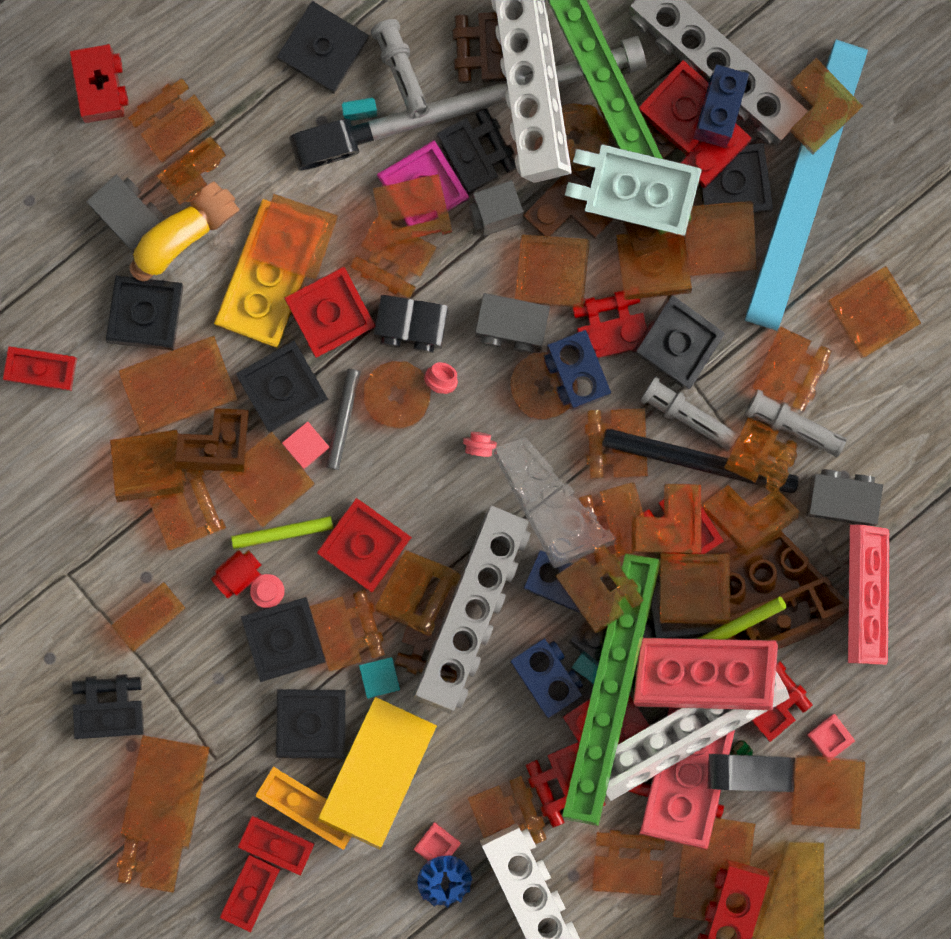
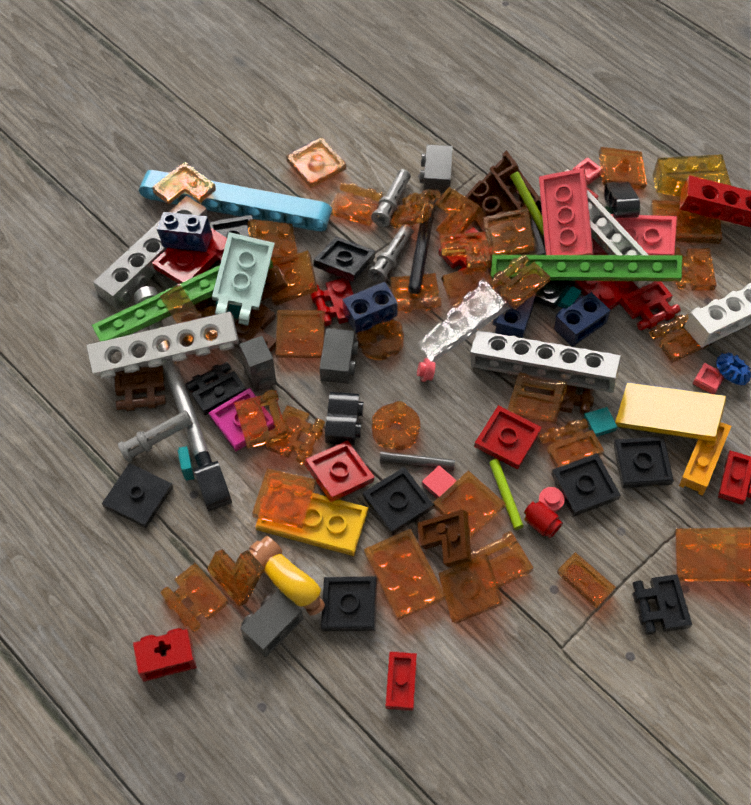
camera: 90 degrees left, 25 degrees down
(441, 378) = (381, 396): coral plate -> none
(586, 102) = (179, 305): none -> clear orange plate
(868, 595) = (497, 147): coral tile -> none

